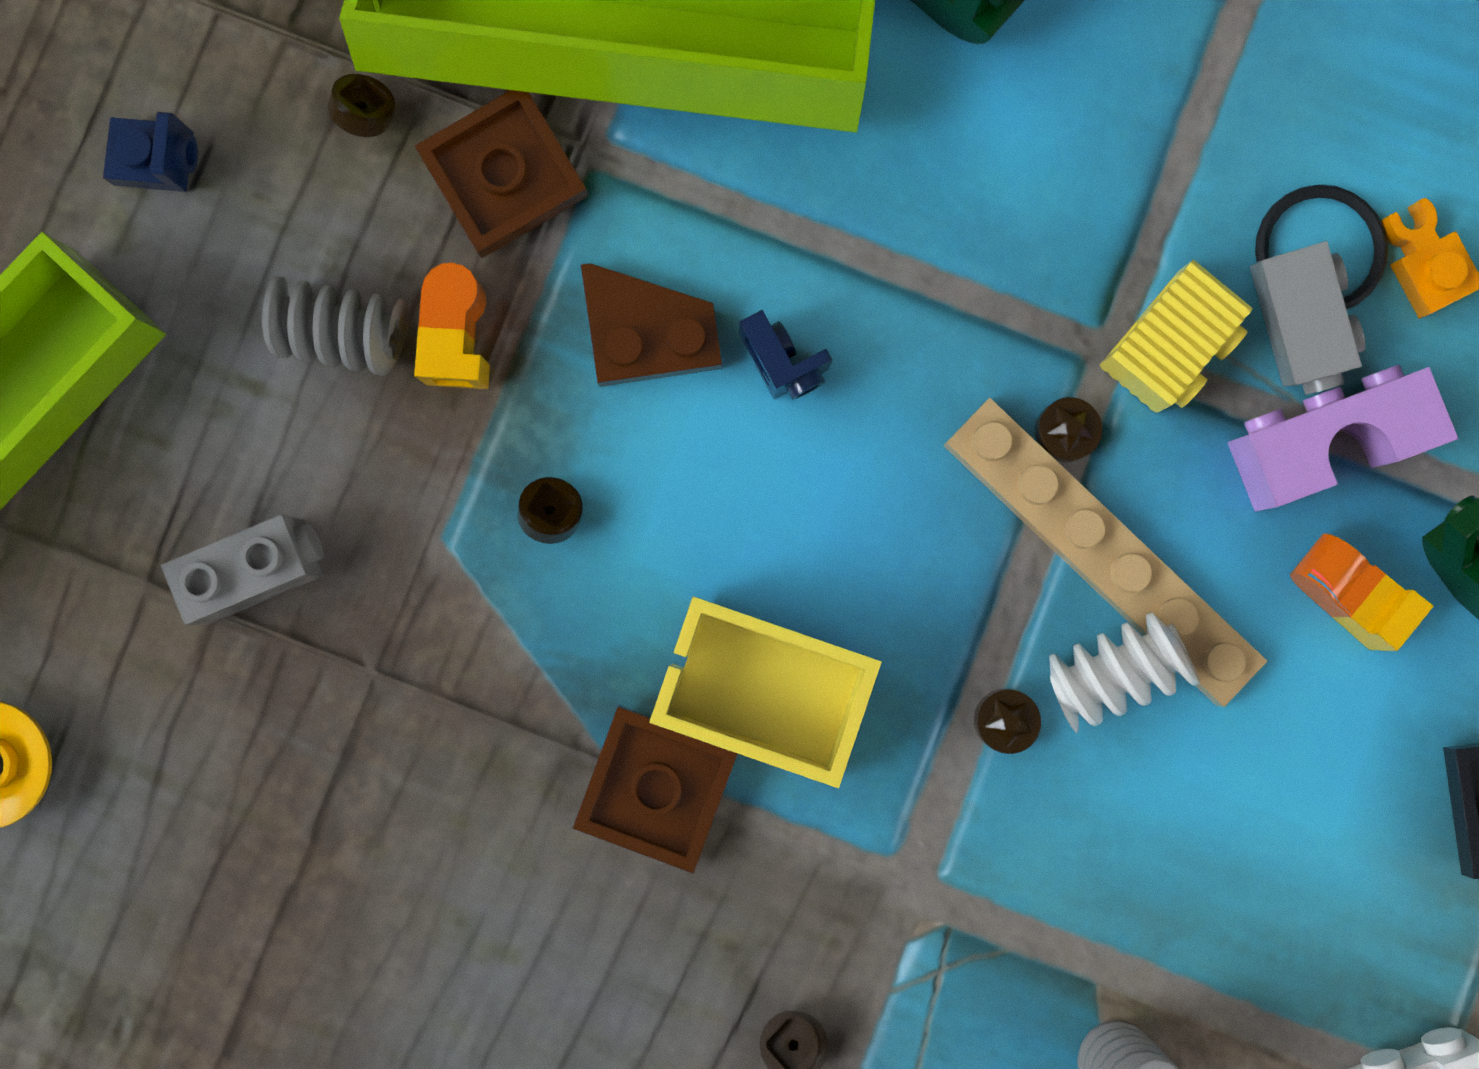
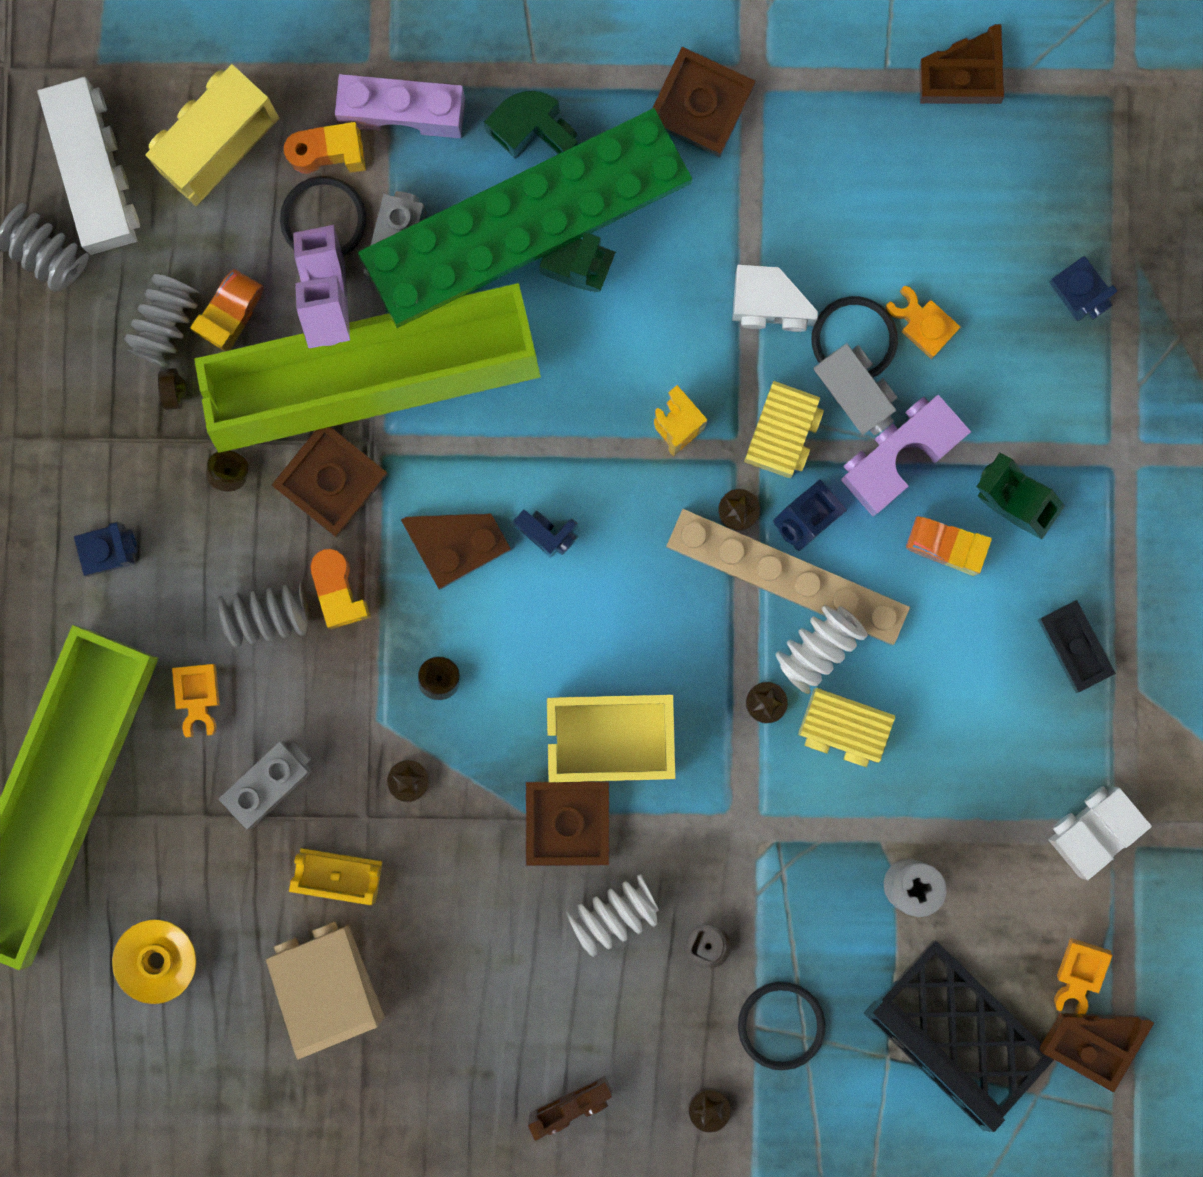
camera: 20 degrees left, 0 degrees up
(197, 399) = (196, 690): none -> light orange plate
(206, 906) = (323, 990): none -> tan slope
(293, 741) = (336, 876): none -> yellow hinge
(451, 640) = (408, 780): none -> dark brown tile
(672, 952) = (614, 916): none -> white piece
(1046, 263) = (682, 423): none -> yellow hinge
(1113, 800) = (845, 726): none -> light yellow brick
(1167, 475) = (808, 515): none -> dark blue bracket
(1227, 143) = (770, 297): none -> white slope

